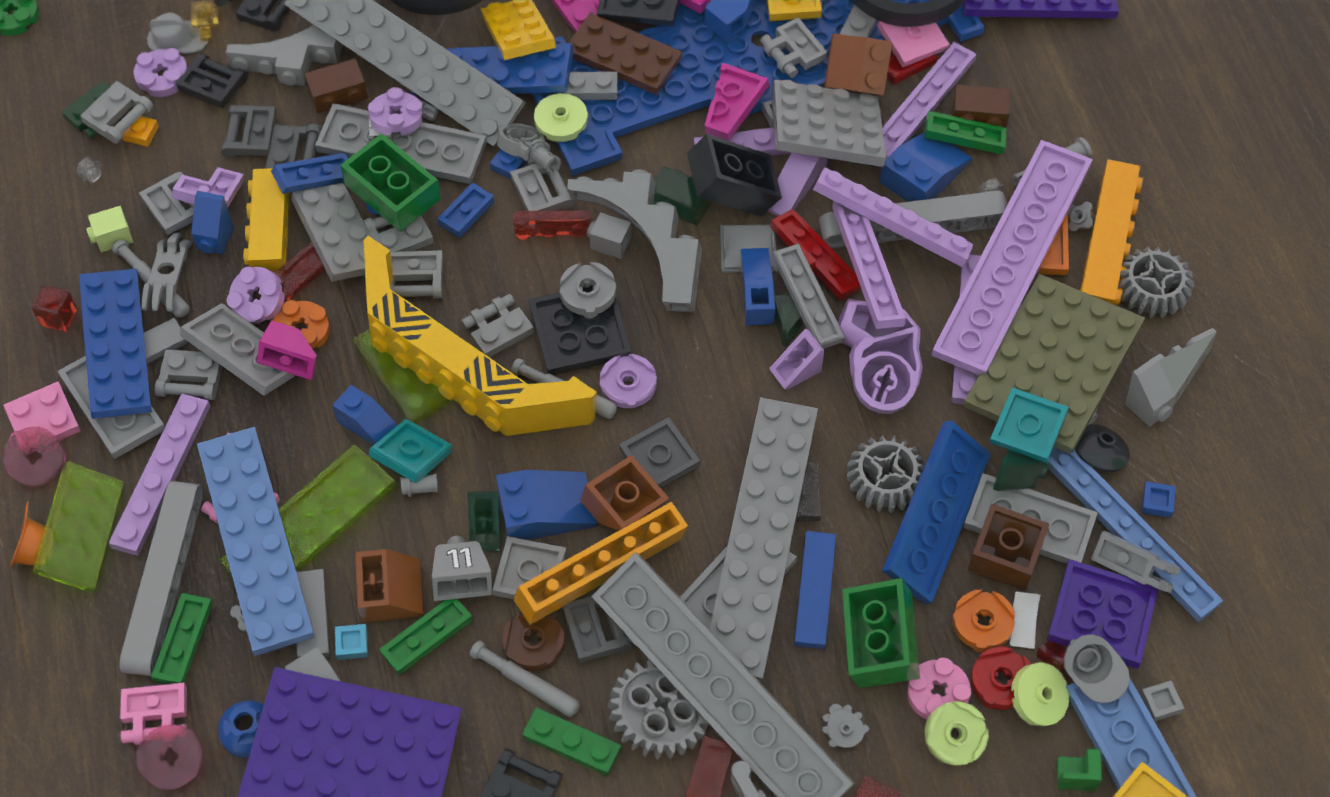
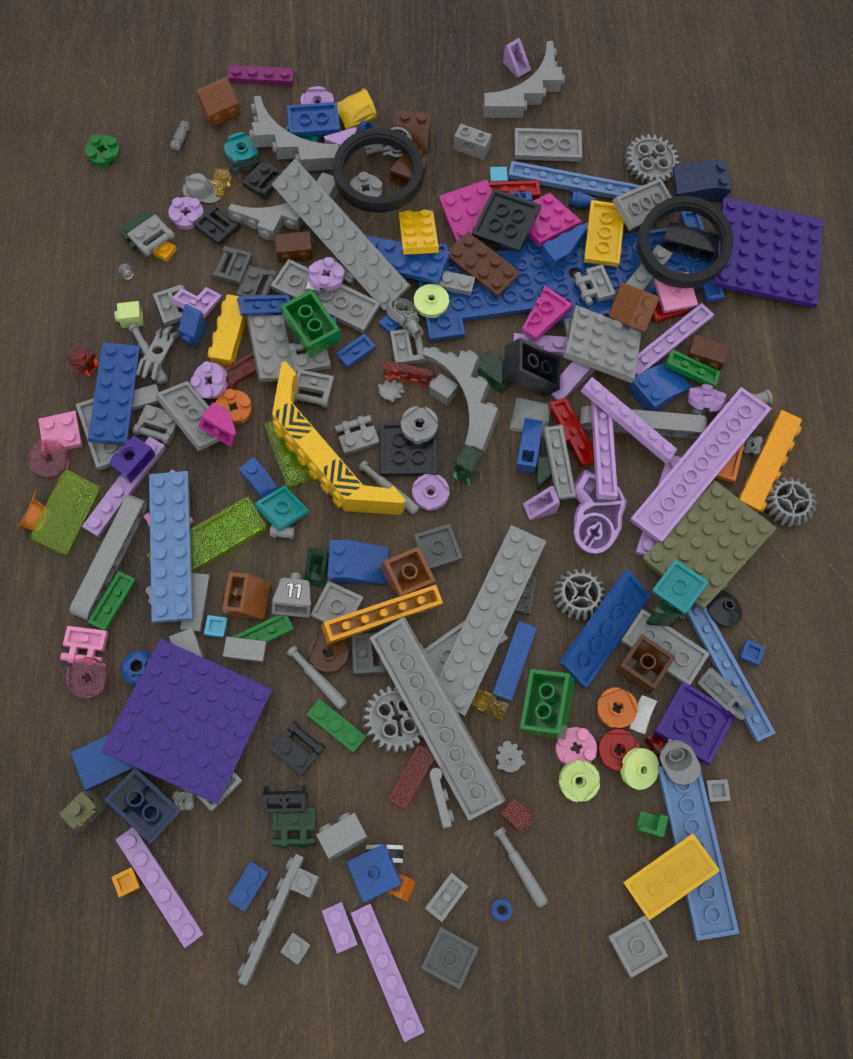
camera: 10 degrees right, 10 degrees up
(165, 443) = (131, 468): none -> dark purple brick
(405, 660) = (244, 649): none -> light grey tile
(532, 254) = (391, 390): none -> light grey piece
(674, 328) = (468, 464): none -> clear green brick
(789, 655) = (487, 702): none -> clear yellow plate
(996, 165) = (706, 397): none -> lavender plate
(1162, 379) = (777, 573): light grey wedge -> none

